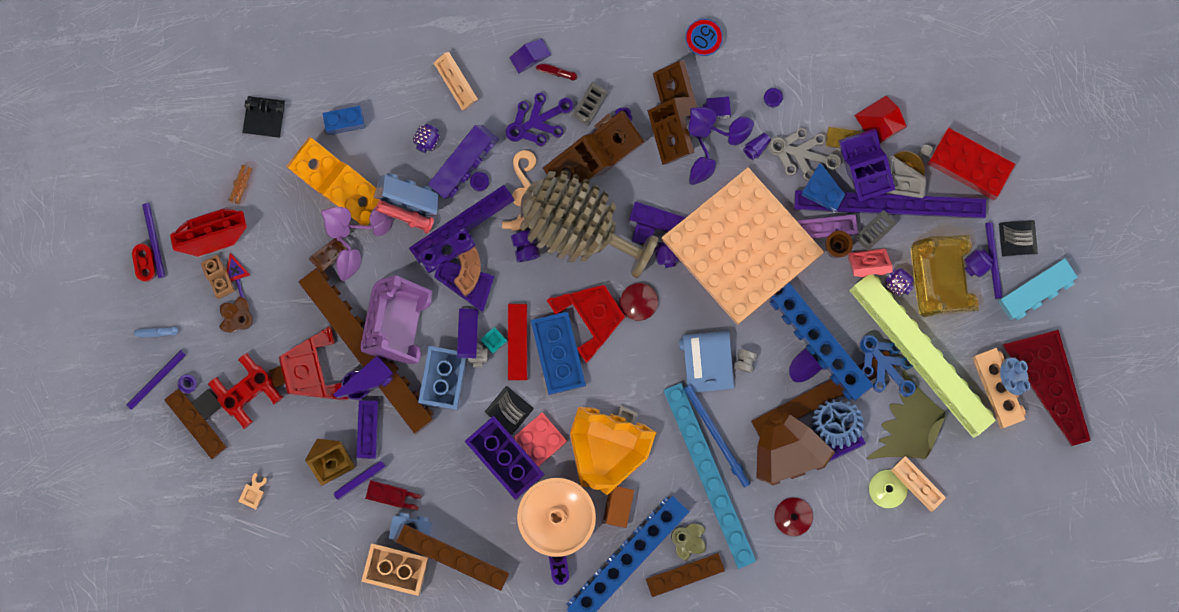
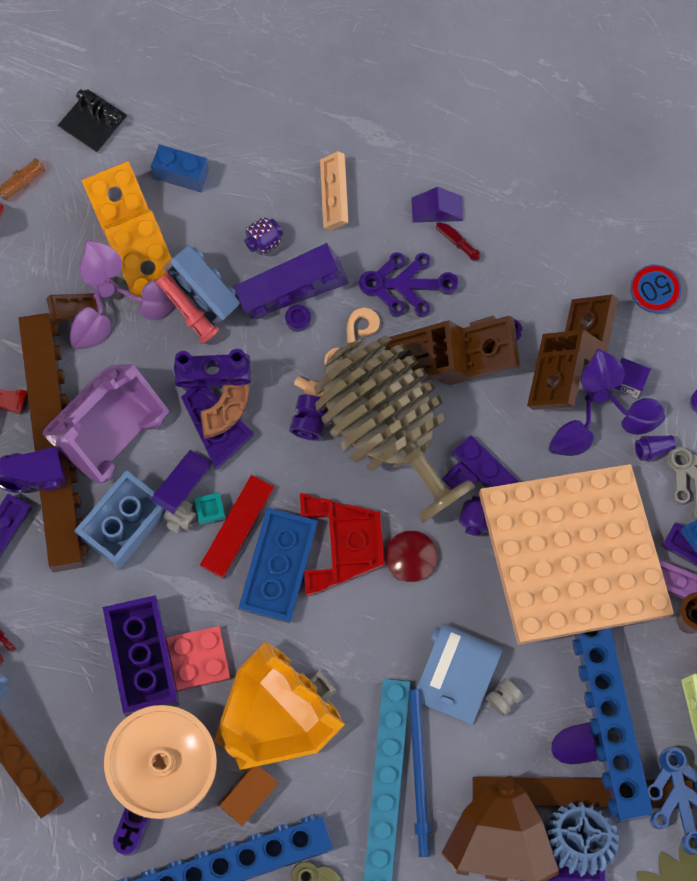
camera: 25 degrees right, 10 degrees down
(468, 219) = (266, 351): dark purple plate -> none
(509, 410) = (182, 603): black sticker -> none
(598, 89) = (491, 278): dark grey slope -> none

